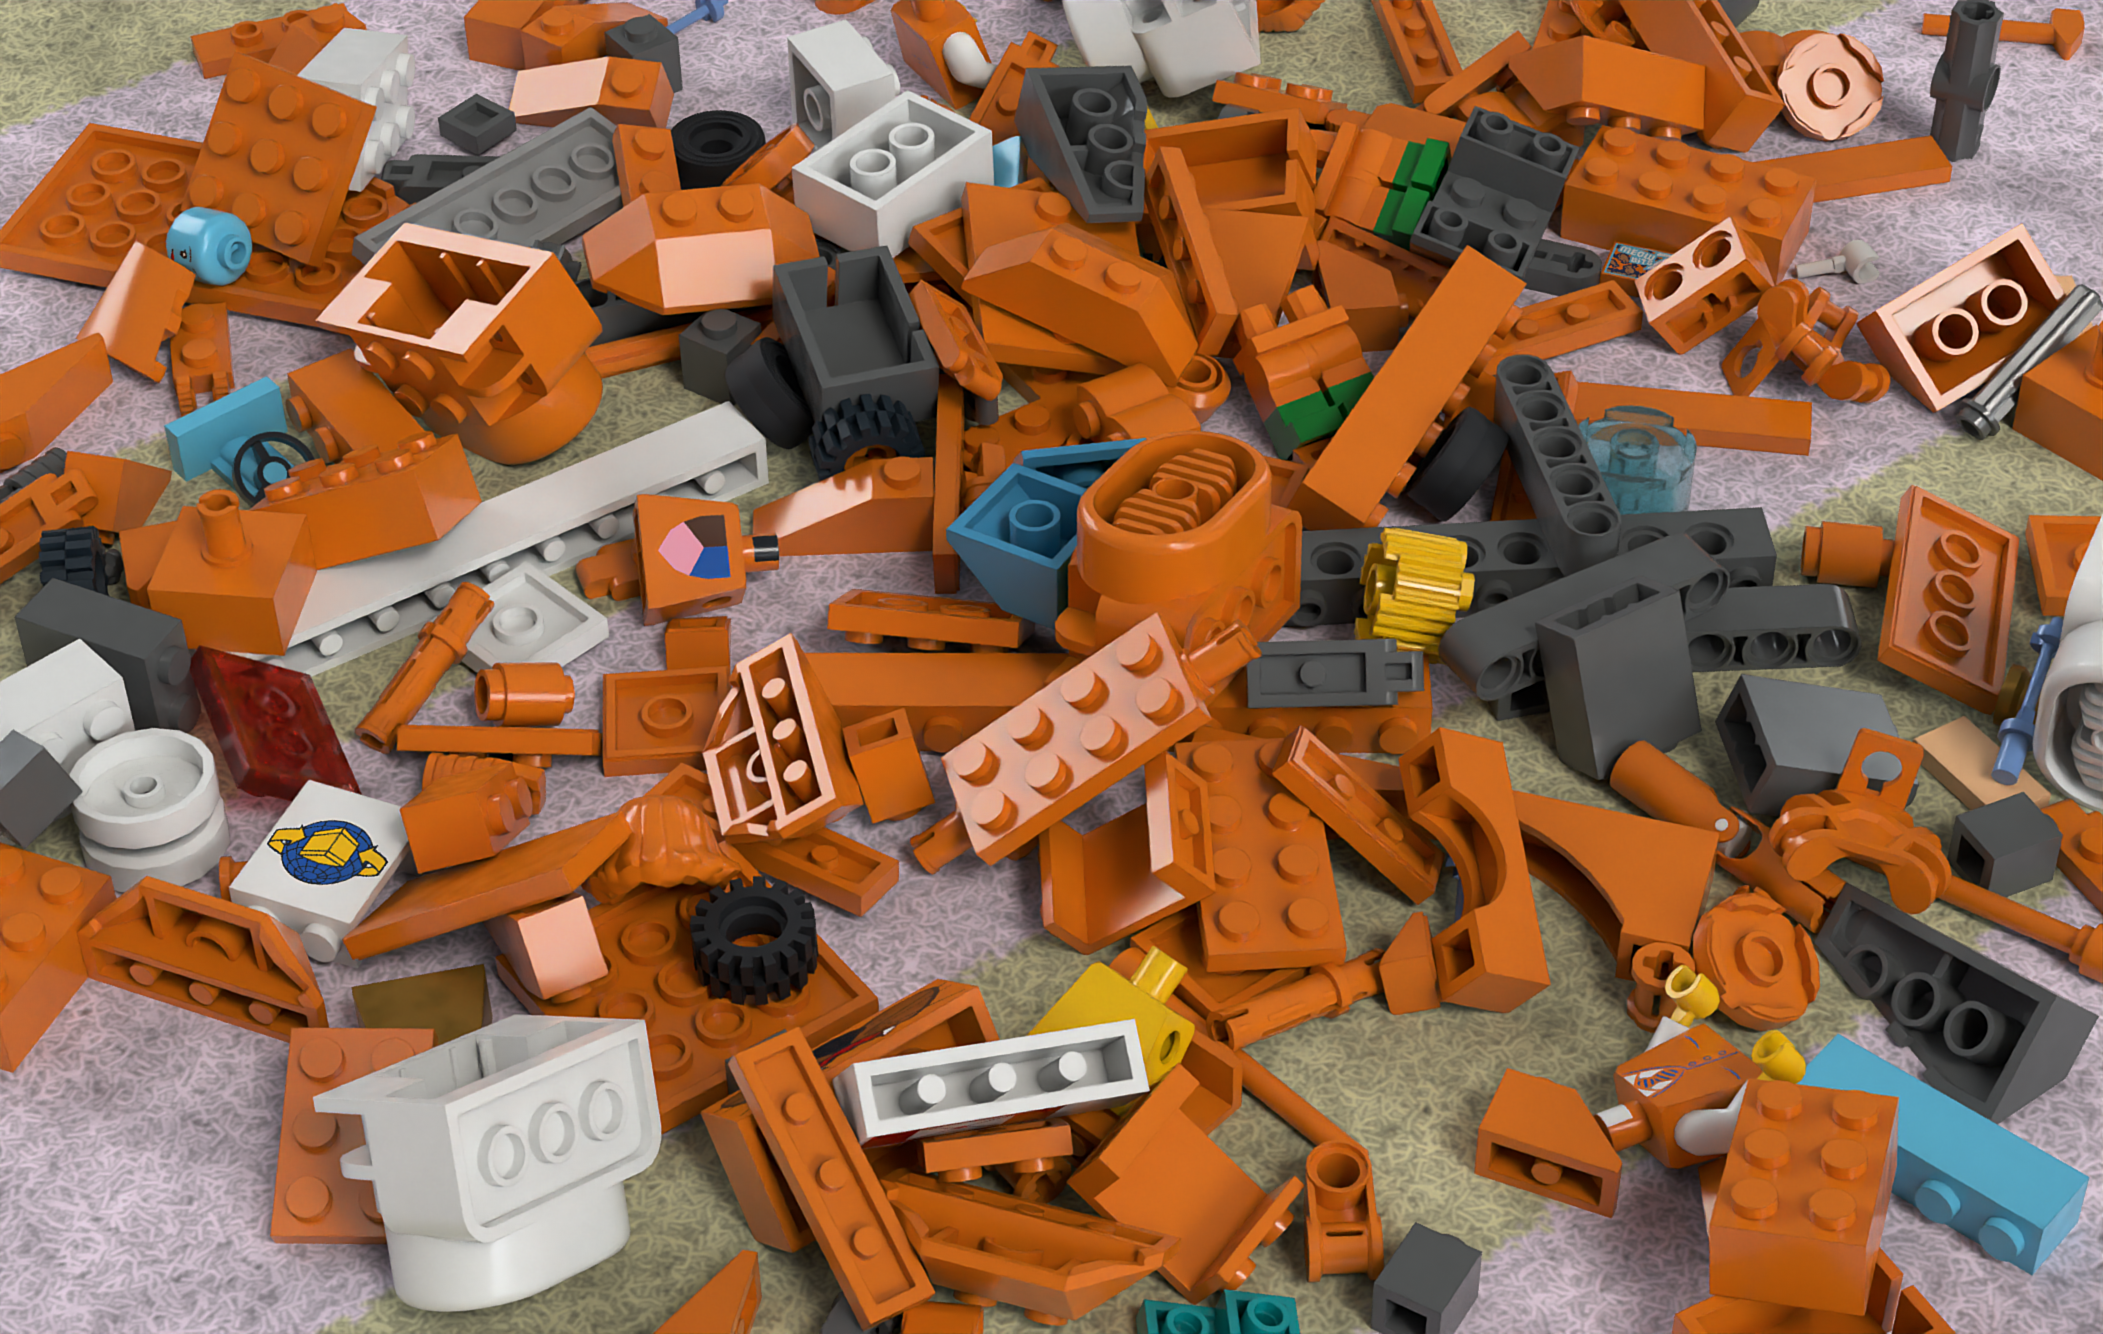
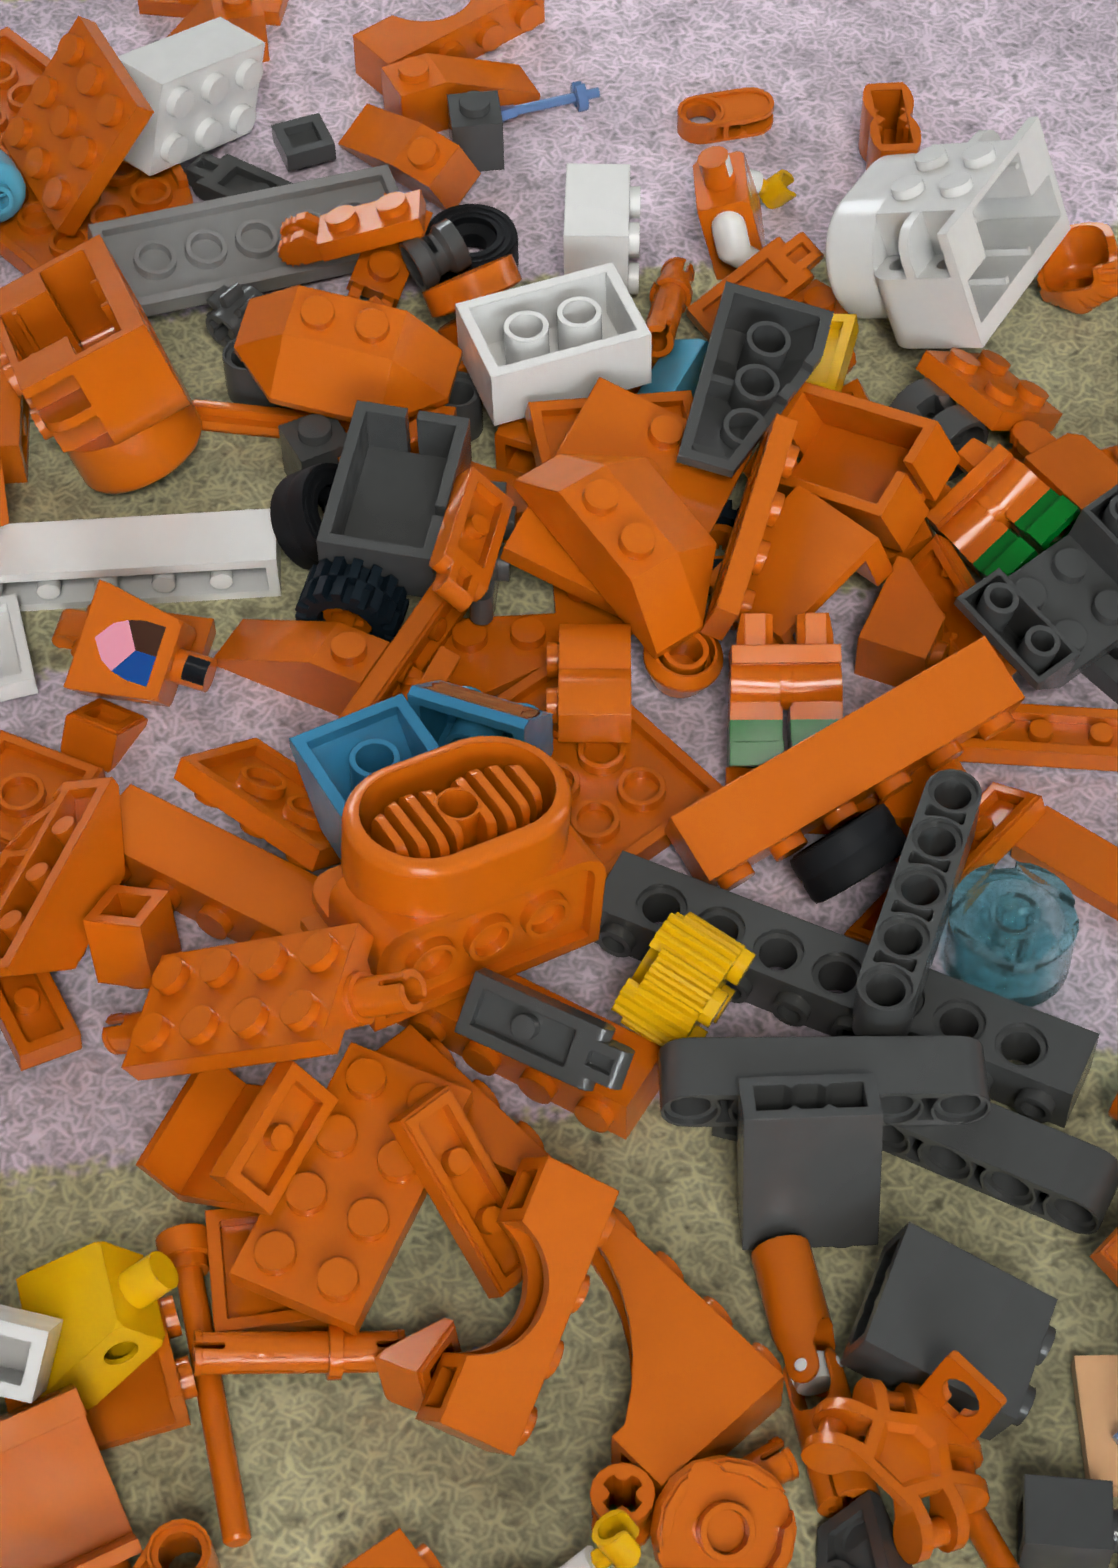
camera: 30 degrees right, 10 degrees up
(617, 158) = (352, 229): none -> orange hinge
(712, 151) = (435, 254): none -> dark grey wheel

